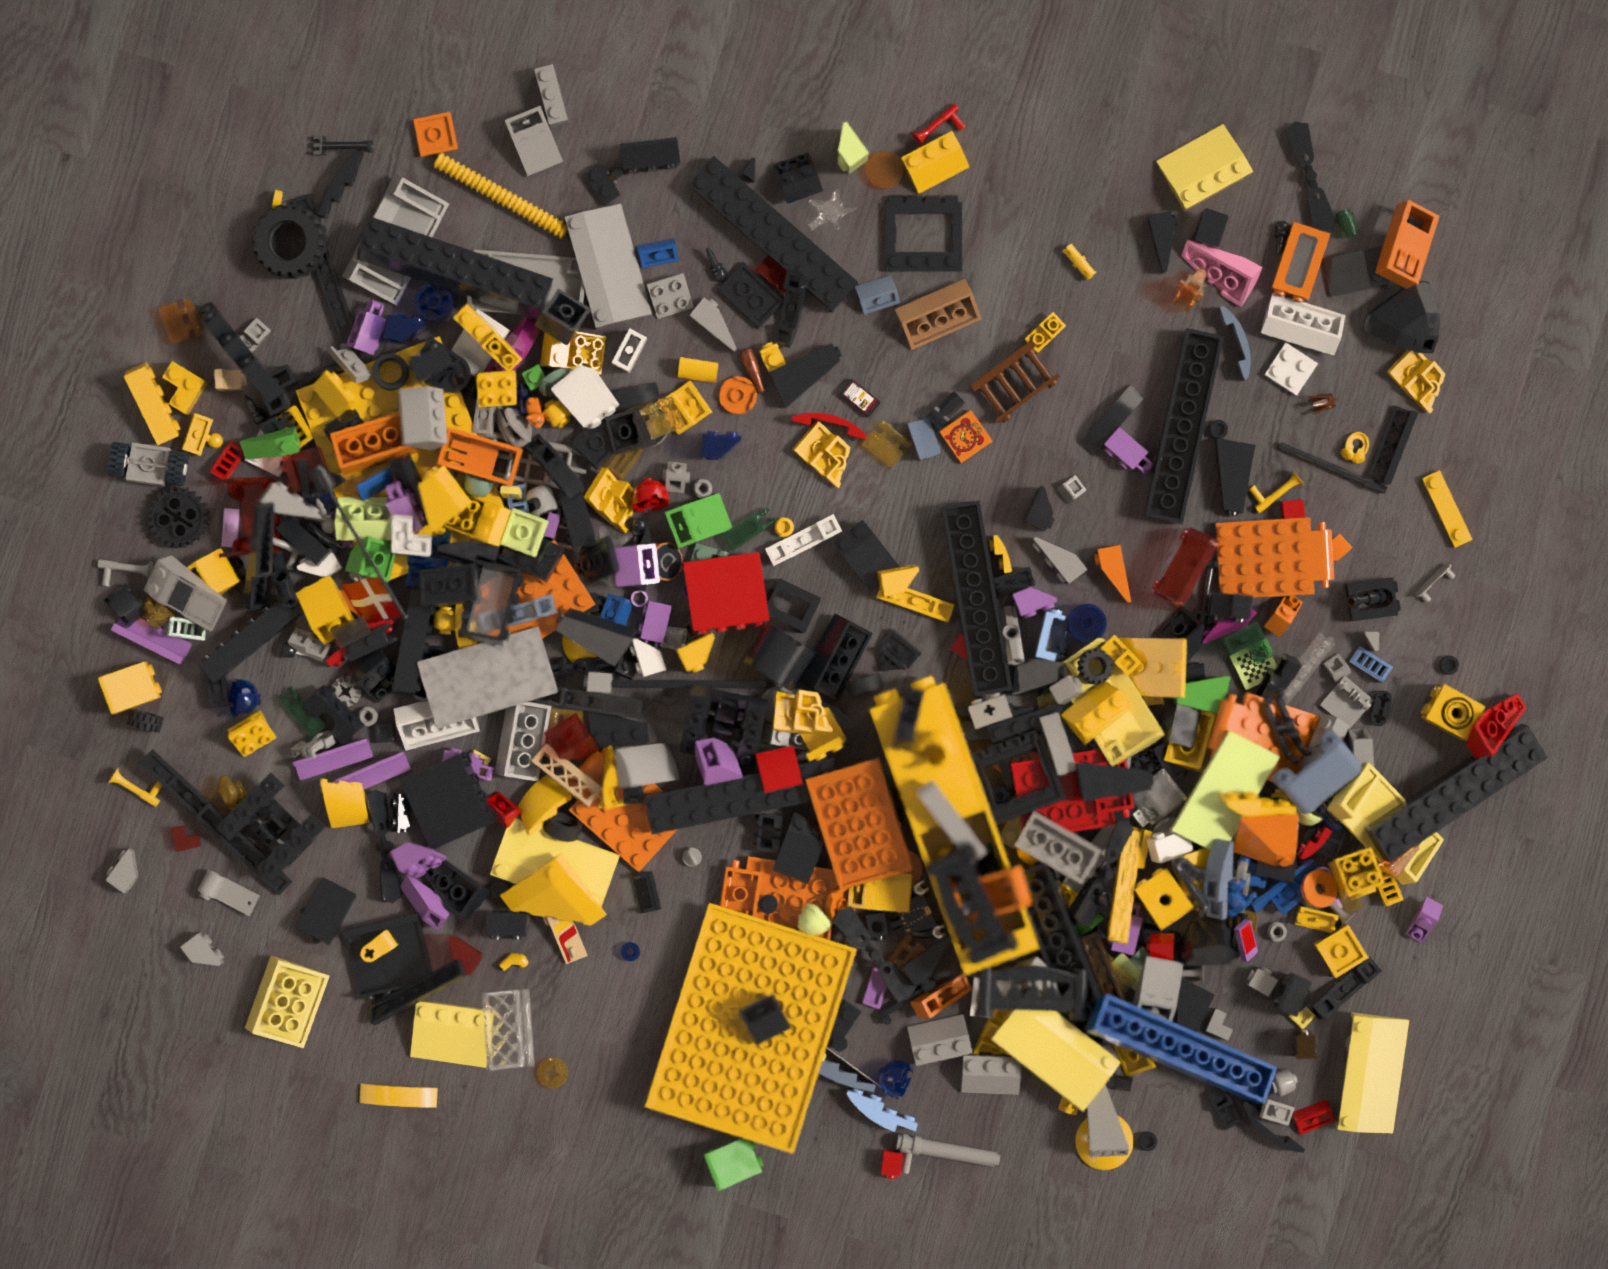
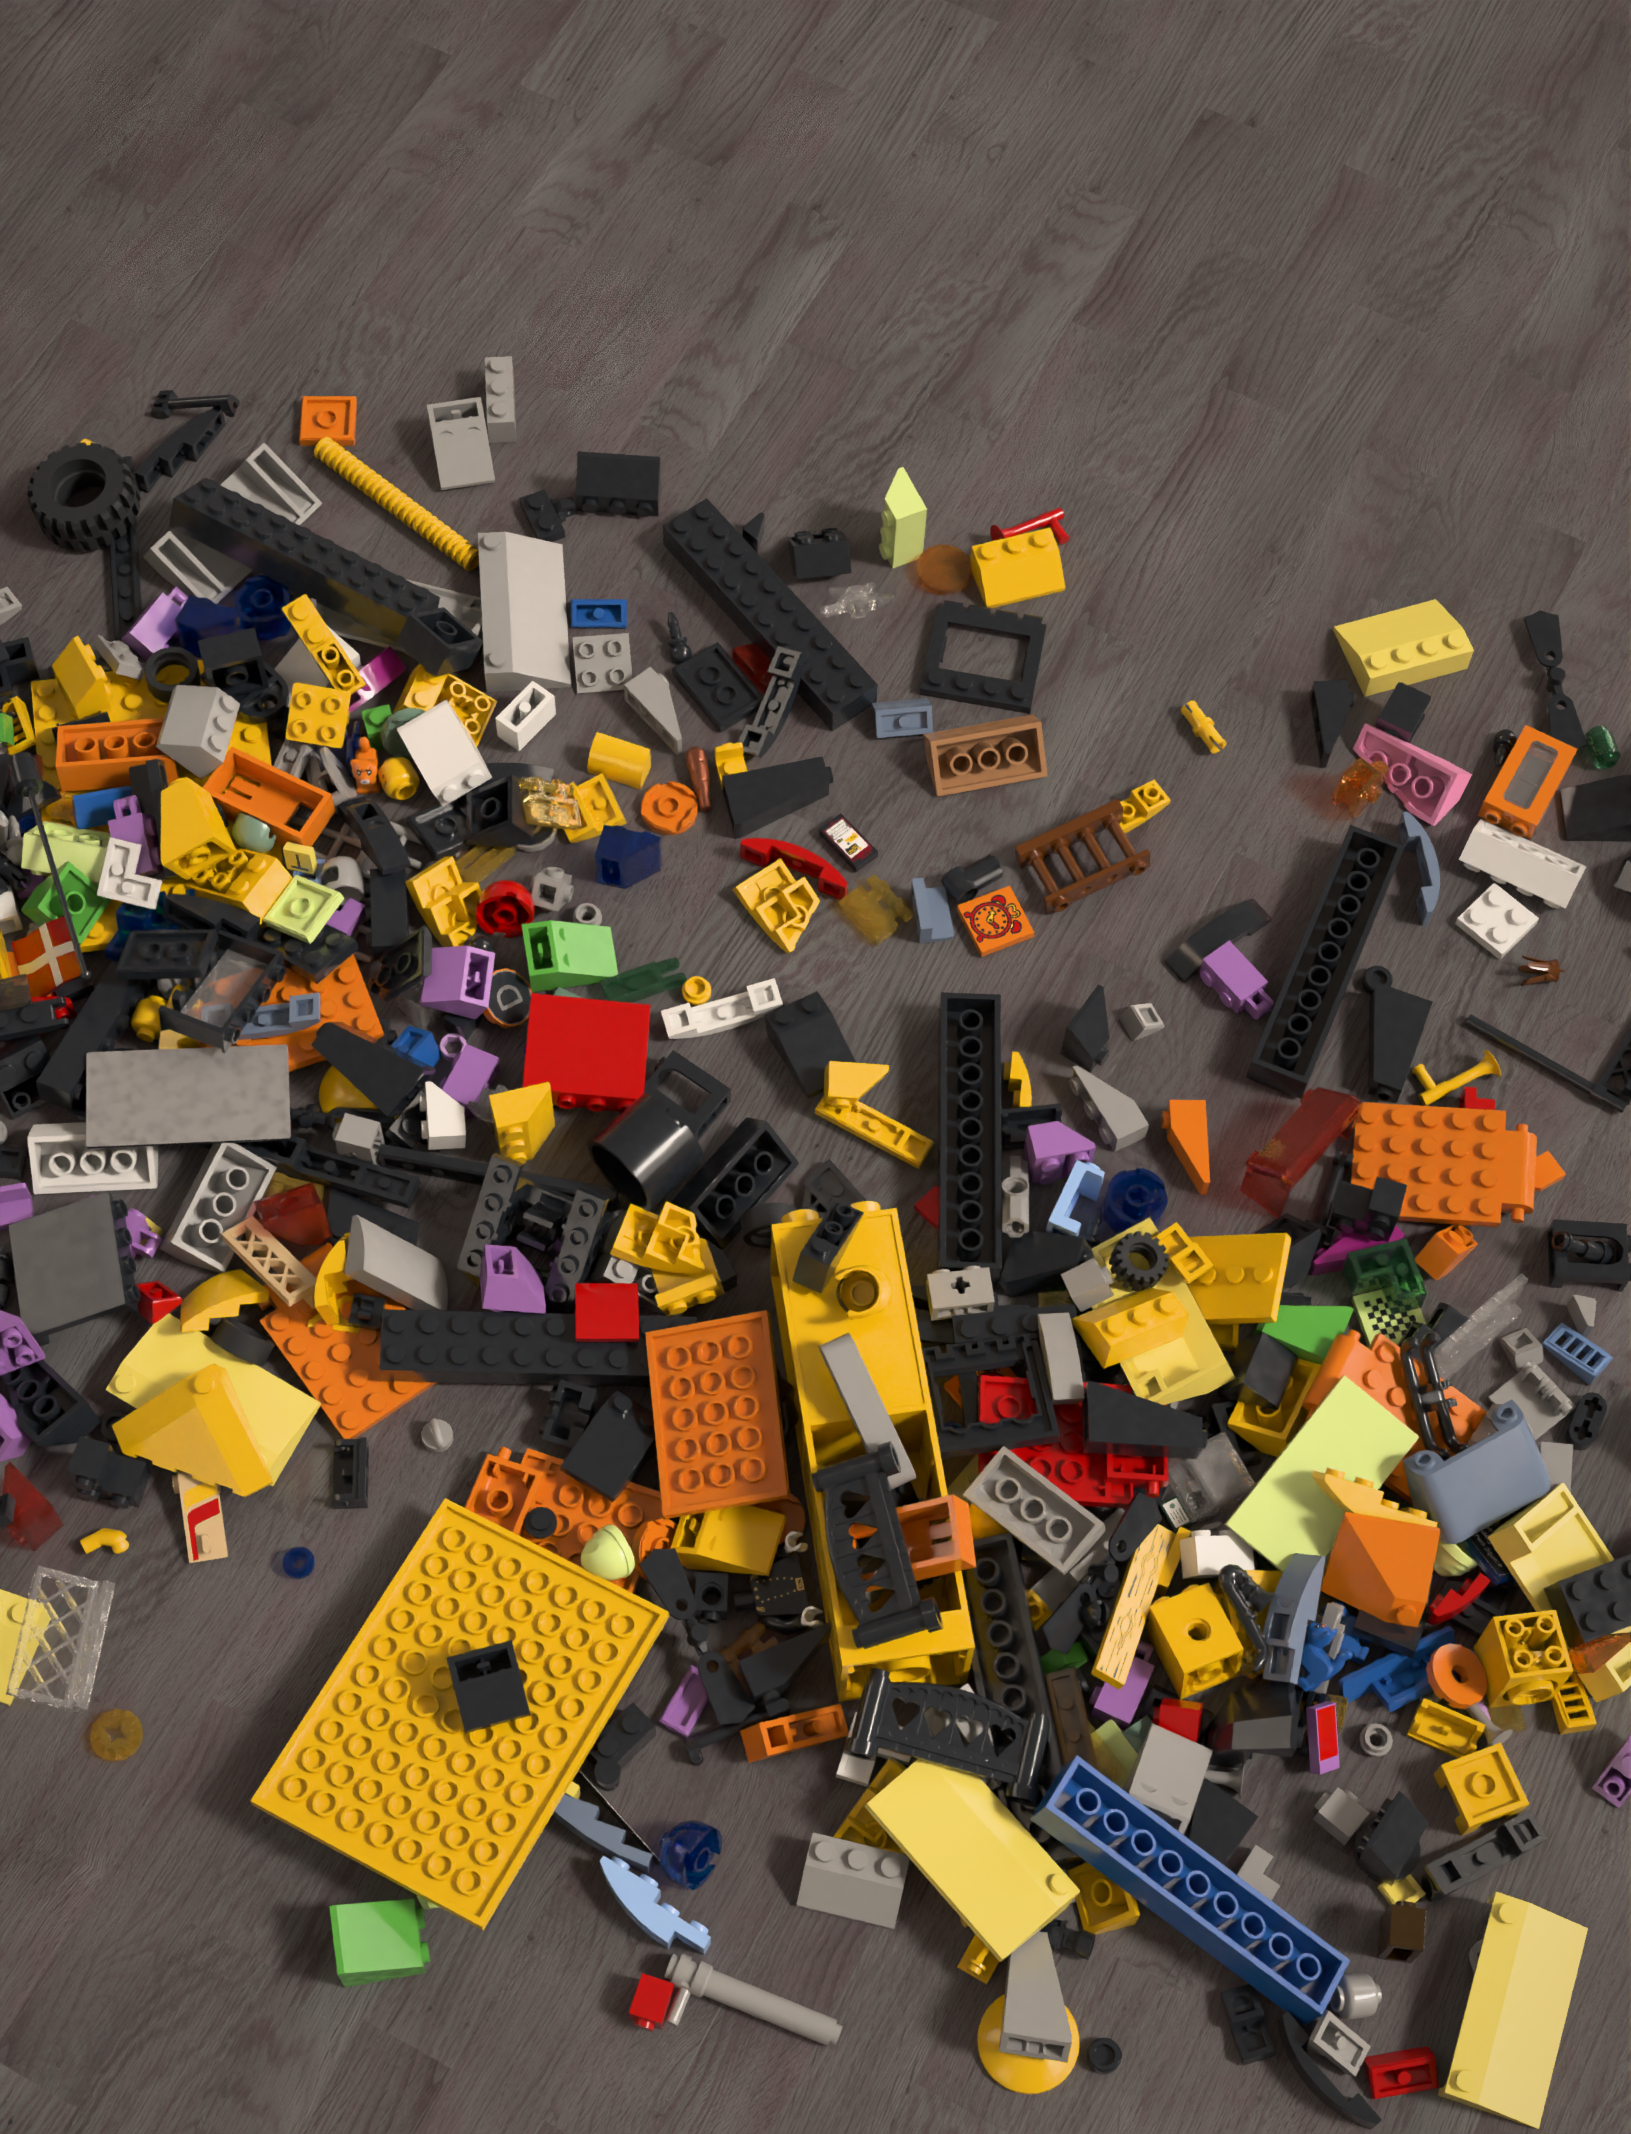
camera: 10 degrees right, 25 degrees down
(939, 1039) = (776, 1807): light grey slope -> none
(1347, 452) = (1587, 1054): yellow piece -> none

